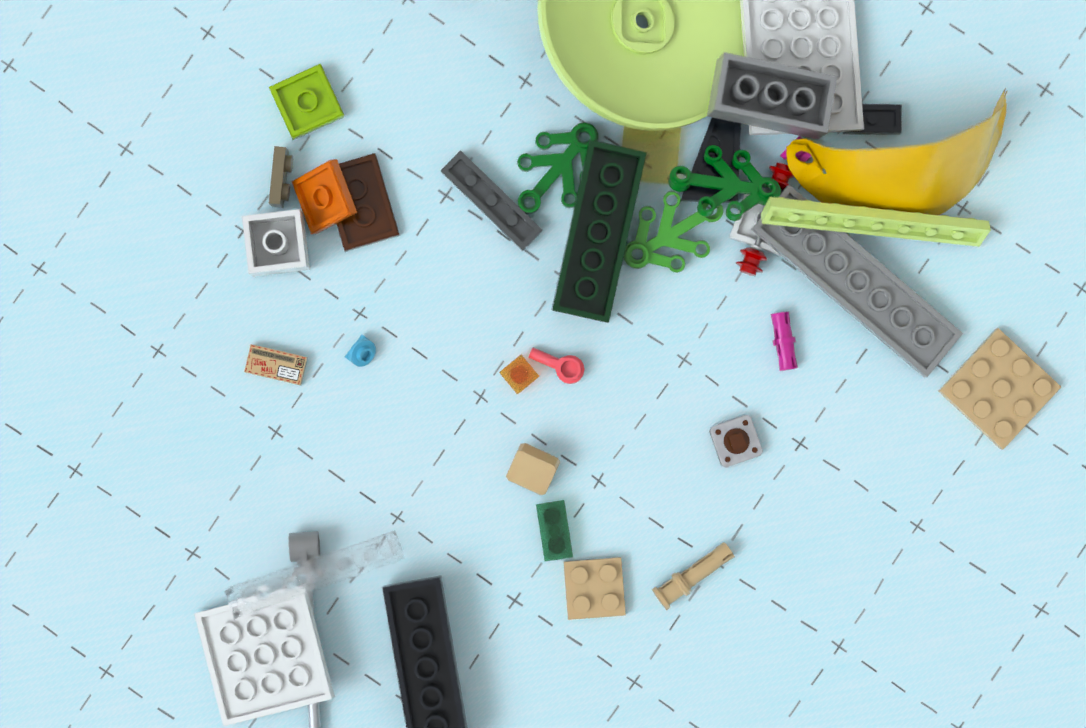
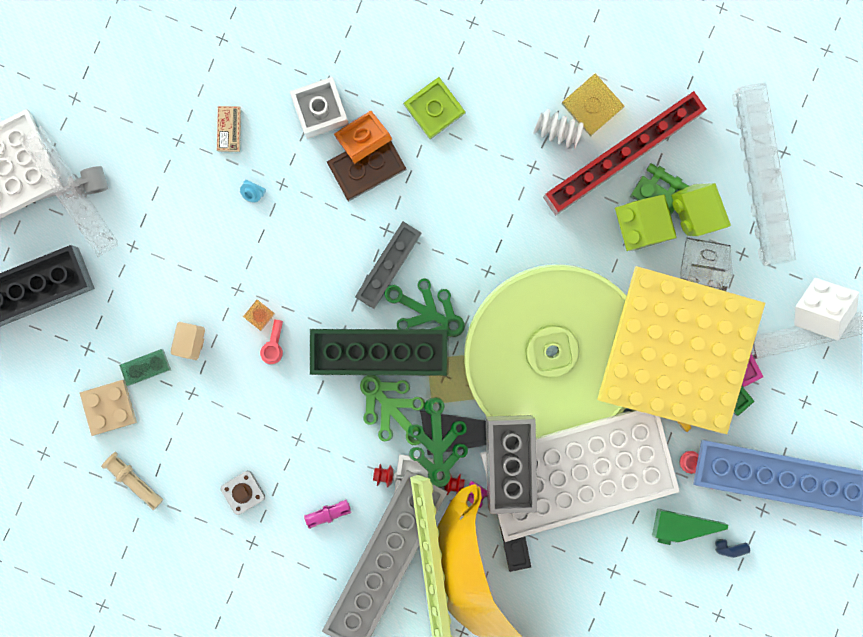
camera: 85 degrees right, 0 degrees up
(278, 188) = (381, 99): dark tan plate -> none

